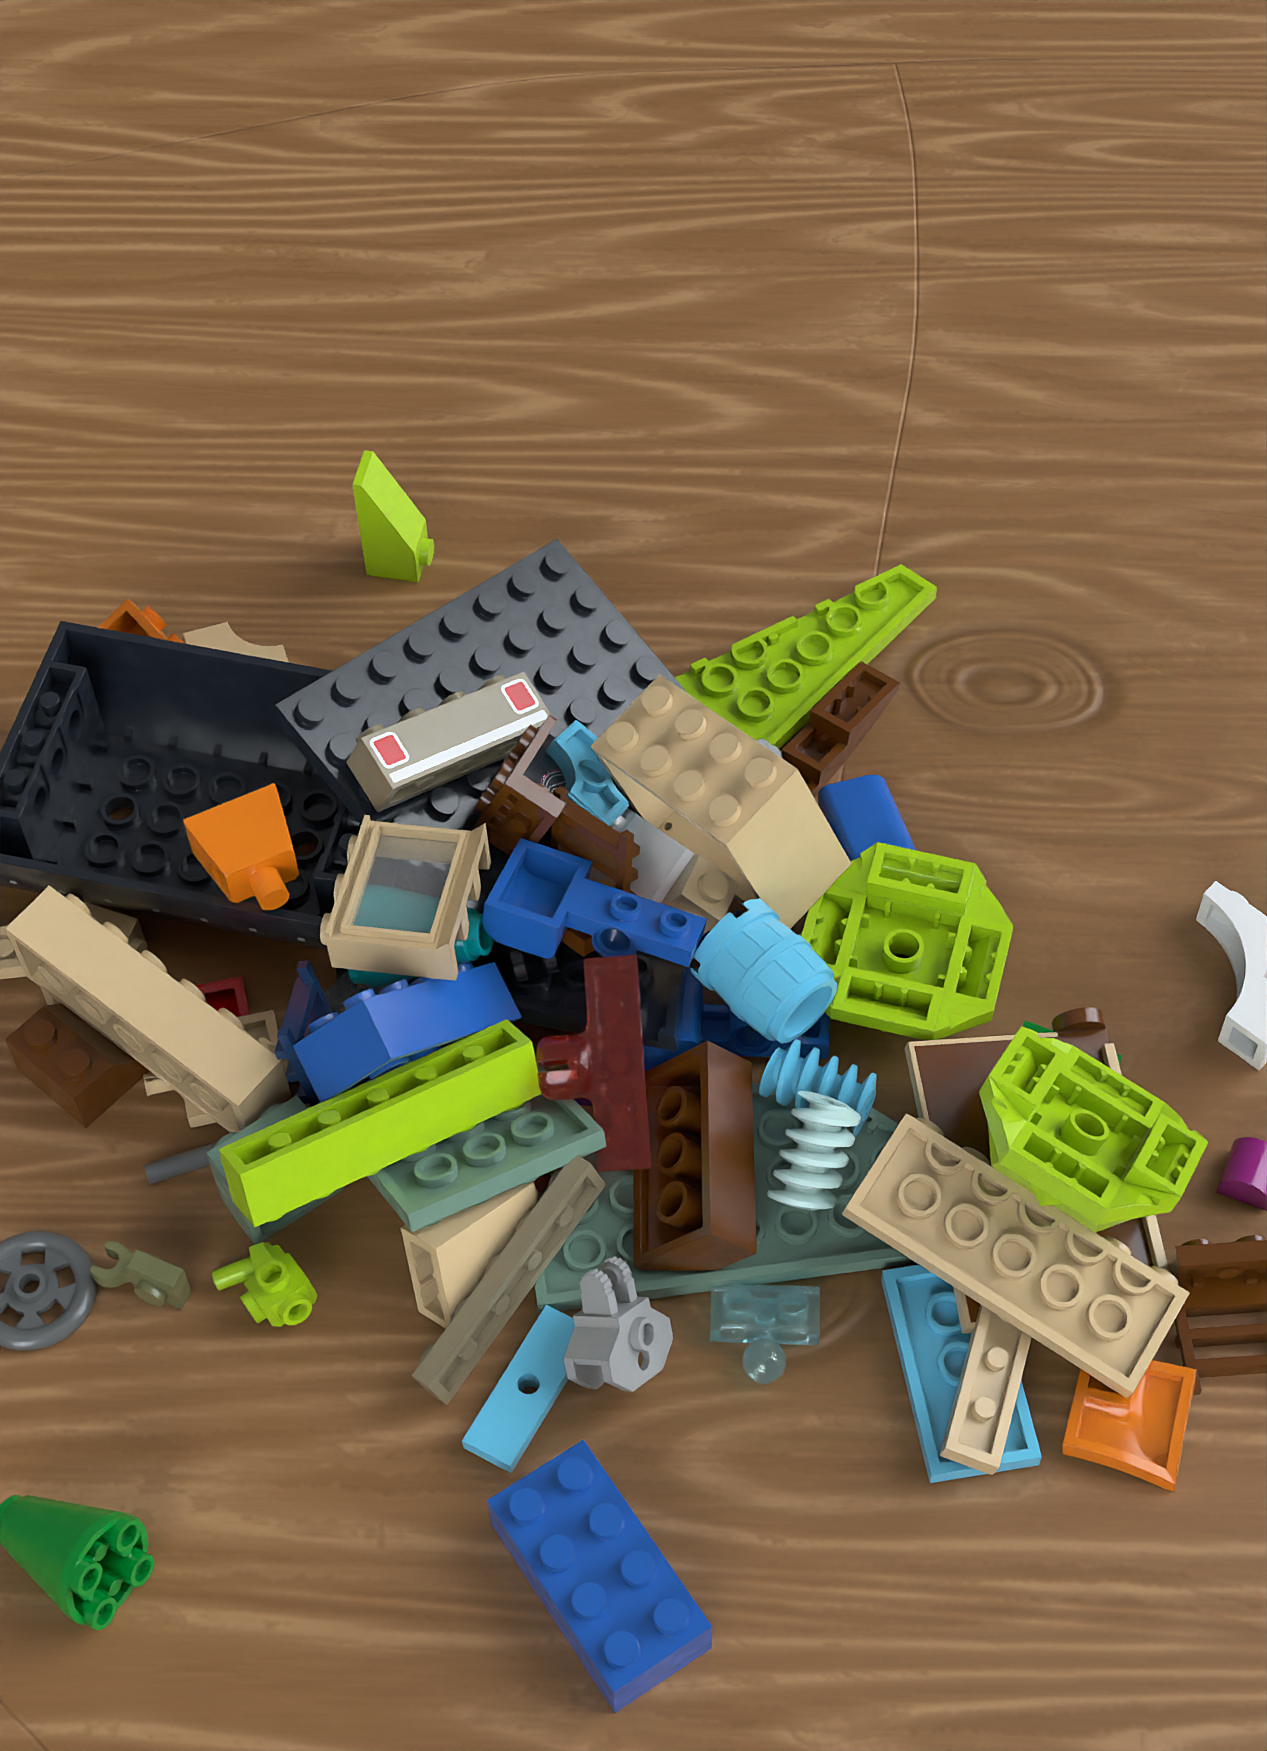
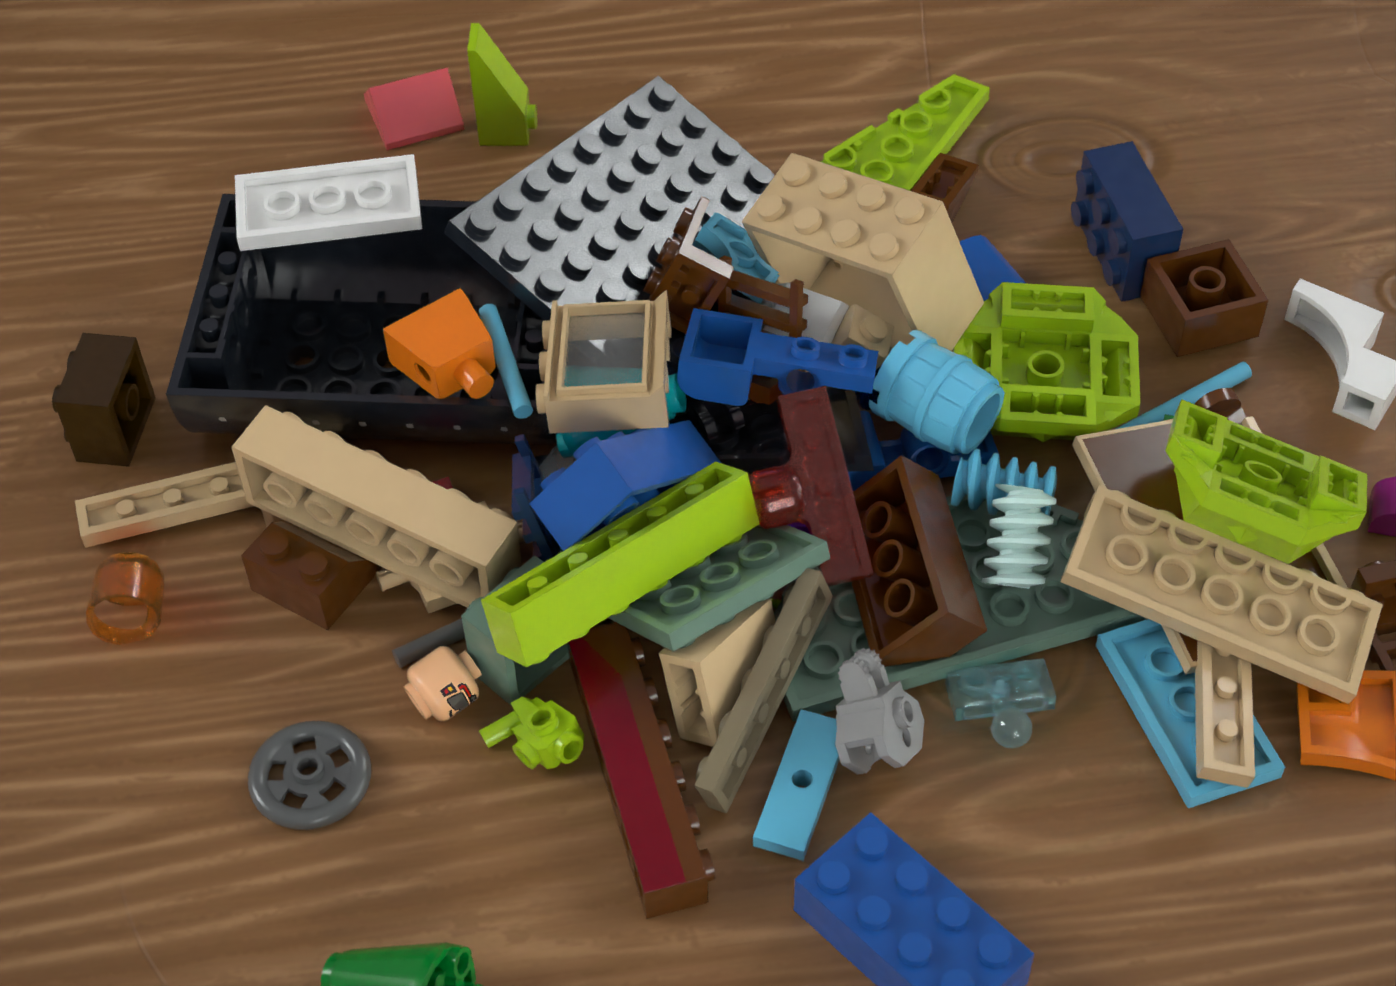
camera: 10 degrees left, 5 degrees down
(152, 1278) = (422, 741): olive plate -> none
(164, 651) = (327, 202): none -> white plate
(184, 1213) = (443, 683): none -> light nougat head
(304, 524) = (415, 109): none -> coral slope
(309, 868) = (506, 362): none -> medium azure bar
(363, 1349) = (638, 771): none -> brick
(445, 741) = (606, 236): brick -> none
(1040, 781) = (1123, 215): none -> dark blue brick
(1054, 1005) = (1225, 379): none -> medium azure bar
(1103, 886) = (1203, 297): none -> reddish brown brick

